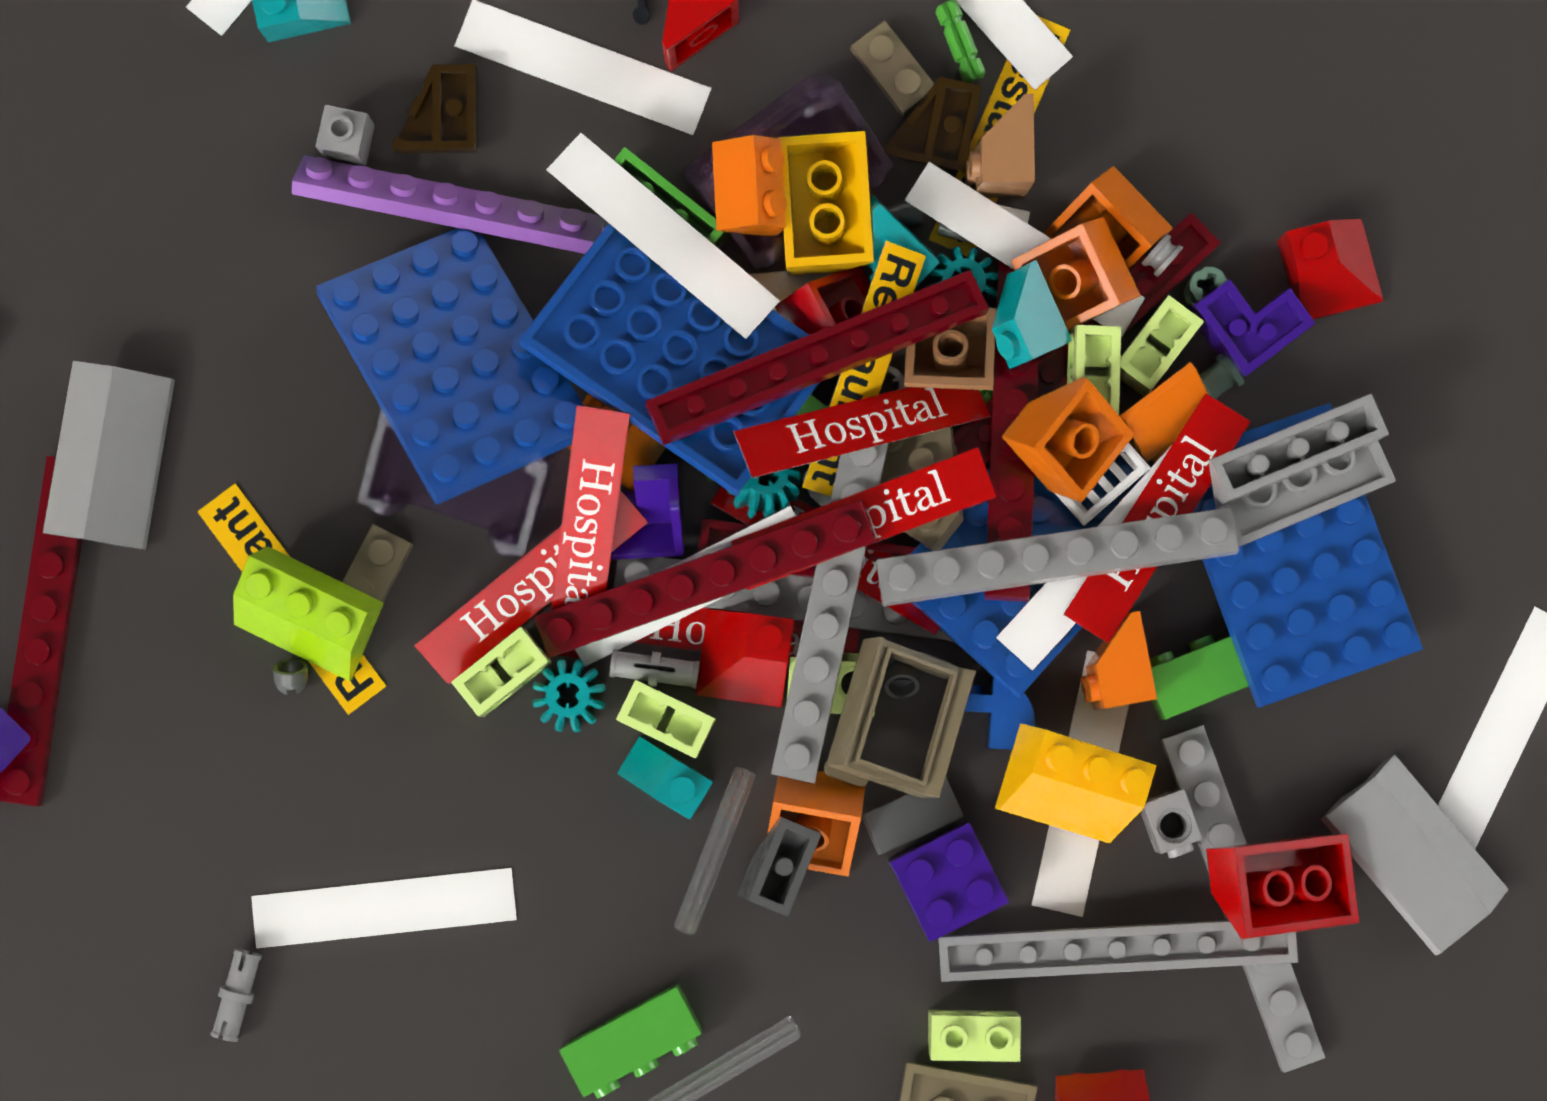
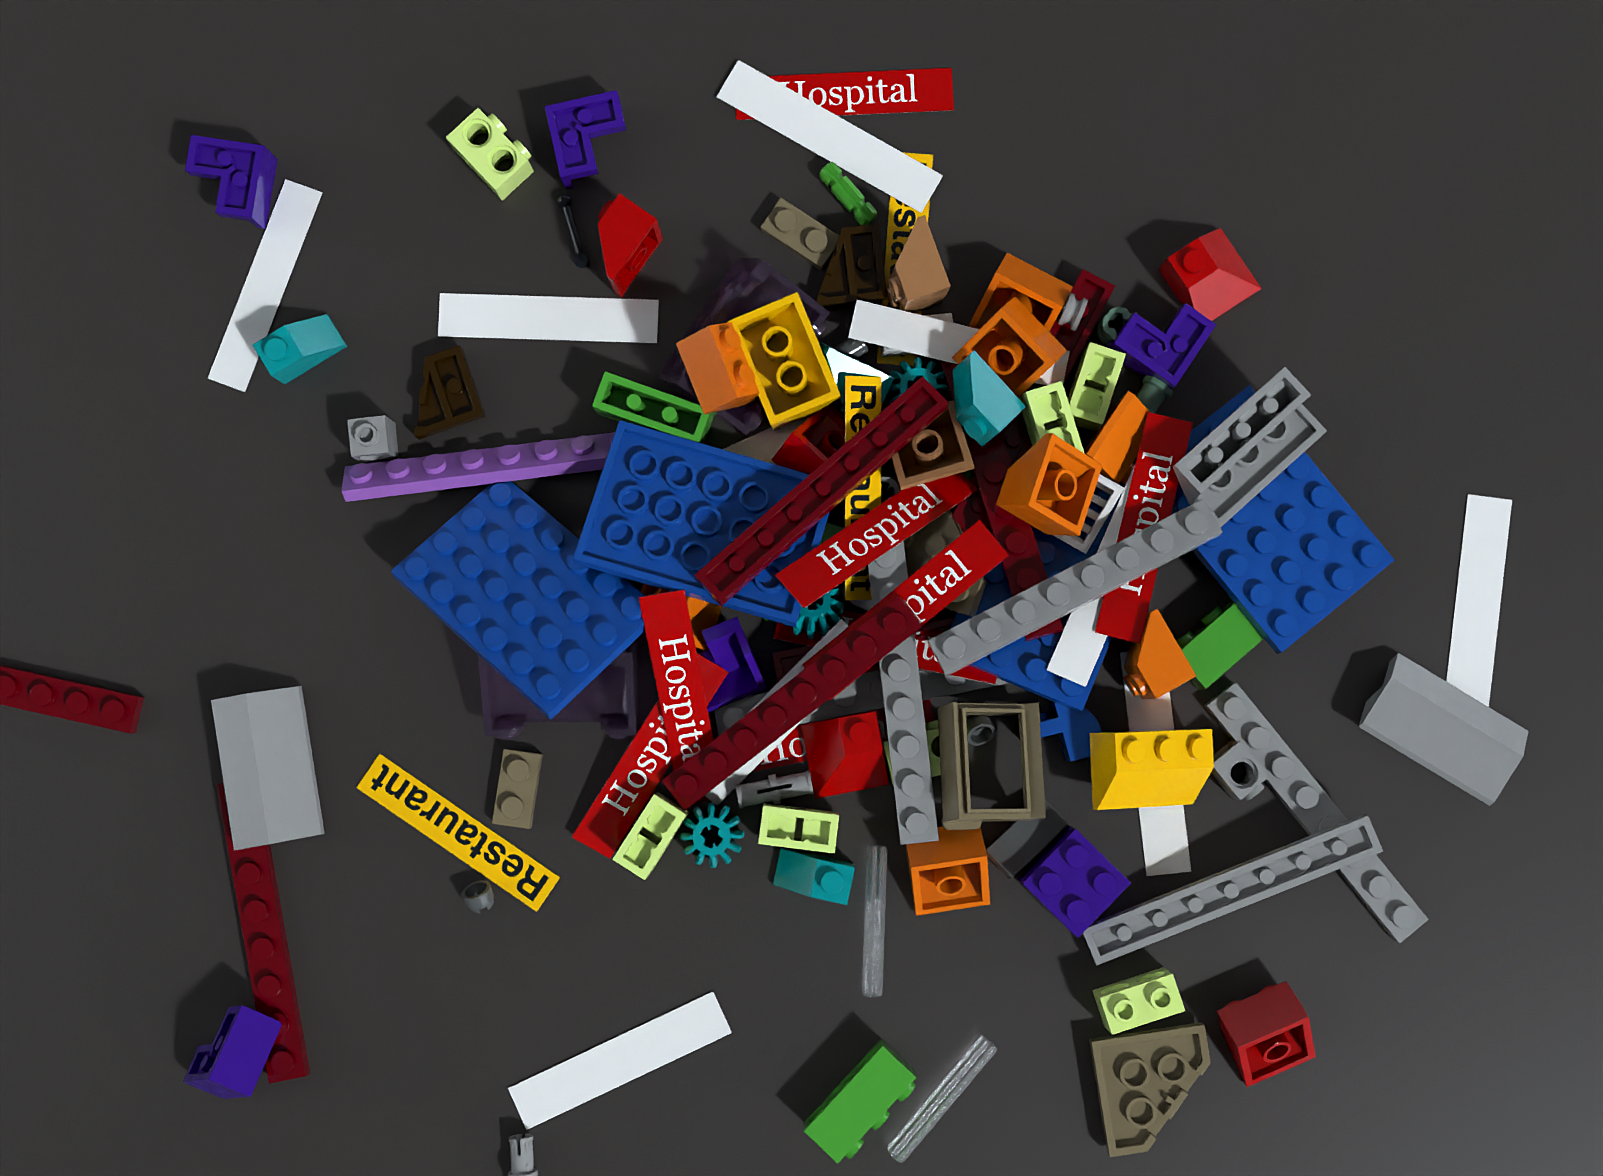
camera: 15 degrees left, 0 degrees up
(304, 611) = (472, 840): lime slope -> none
(663, 235) = (661, 433): white sticker -> none
(779, 866) = (933, 918): dark grey slope -> none
(1285, 884) = (1350, 791): red slope -> none

